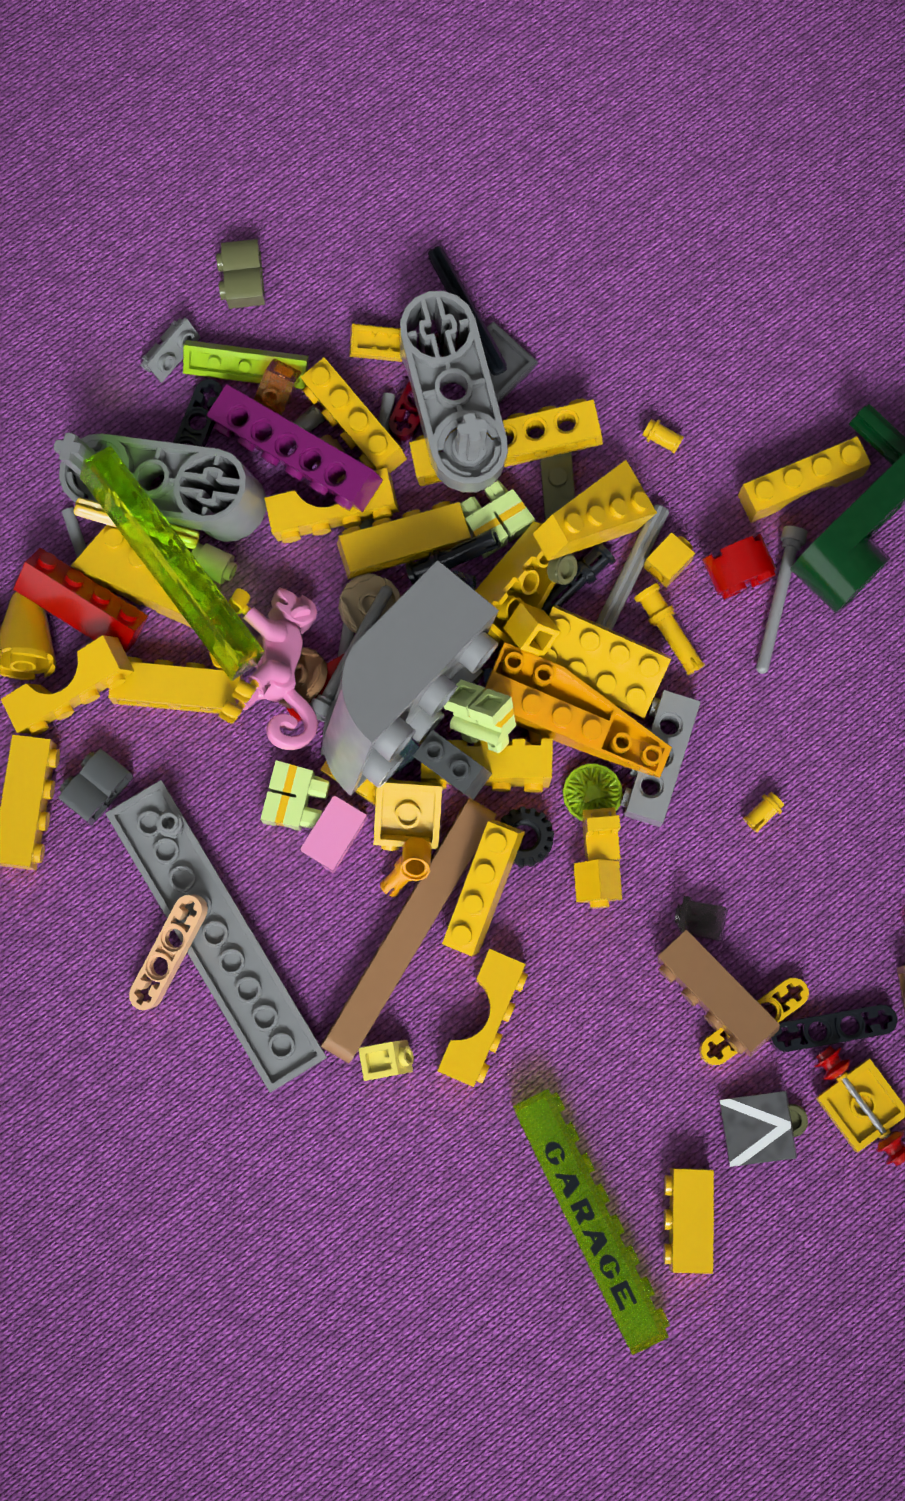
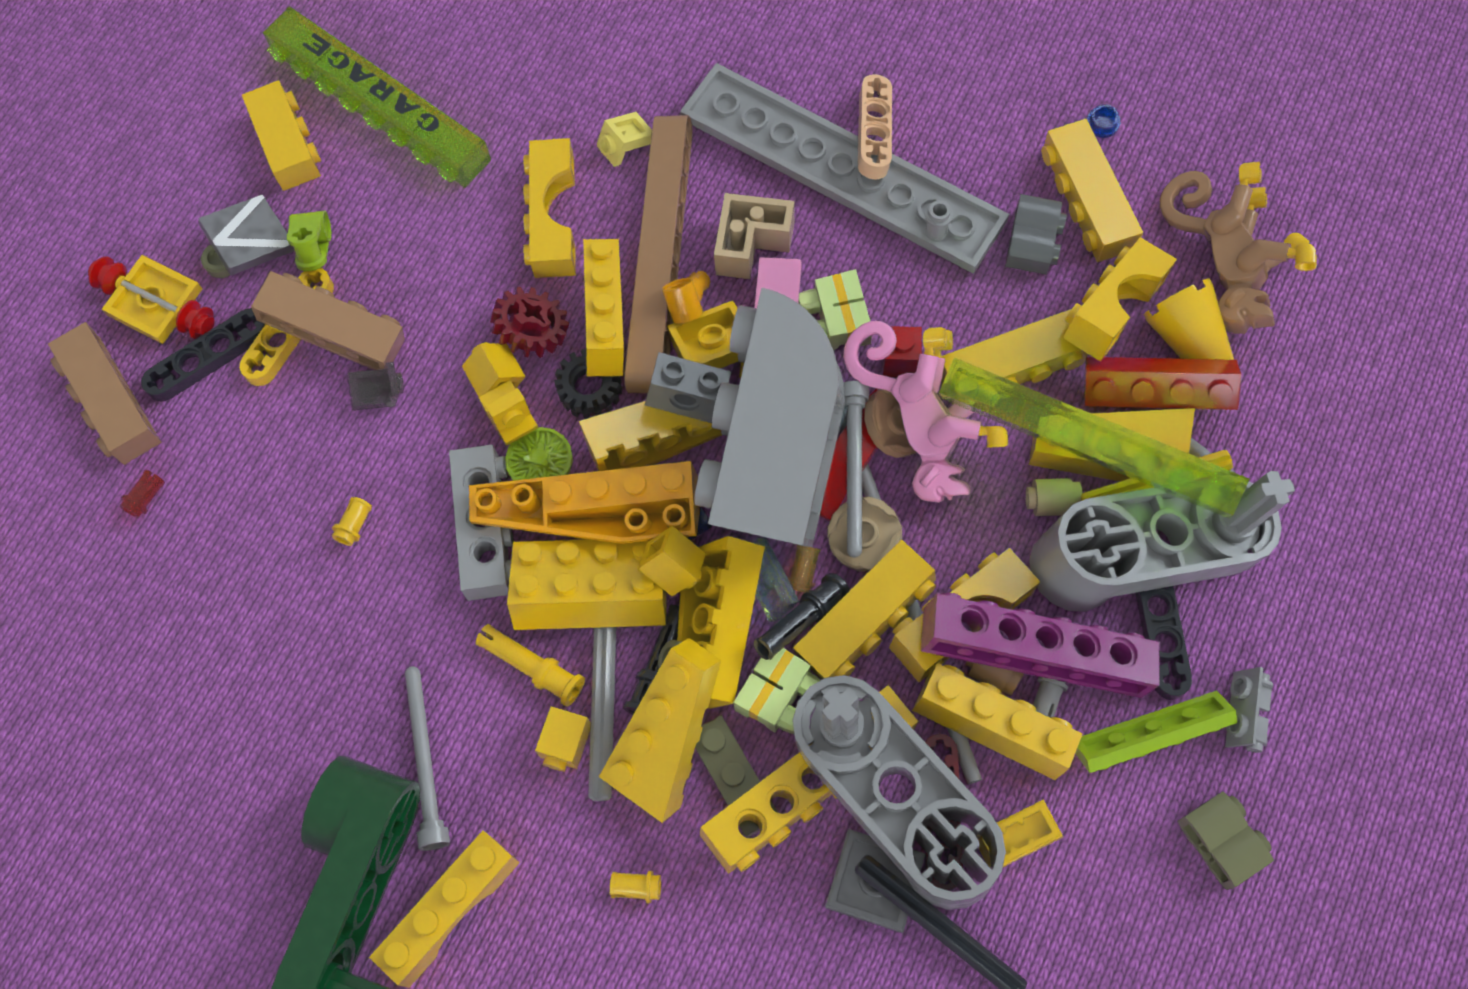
camera: 160 degrees right, 10 degrees down
(254, 735) = (906, 353): none -> red brick
(277, 386) = (1102, 716): clear orange brick -> none
(330, 909) = (750, 225): none -> tan brick
(481, 715) = (682, 439): yellowish green hips -> none
(538, 903) = (529, 322): none -> dark red gear
(704, 1096) = (310, 237): none -> lime piece
(740, 564) = (477, 761): red brick -> none

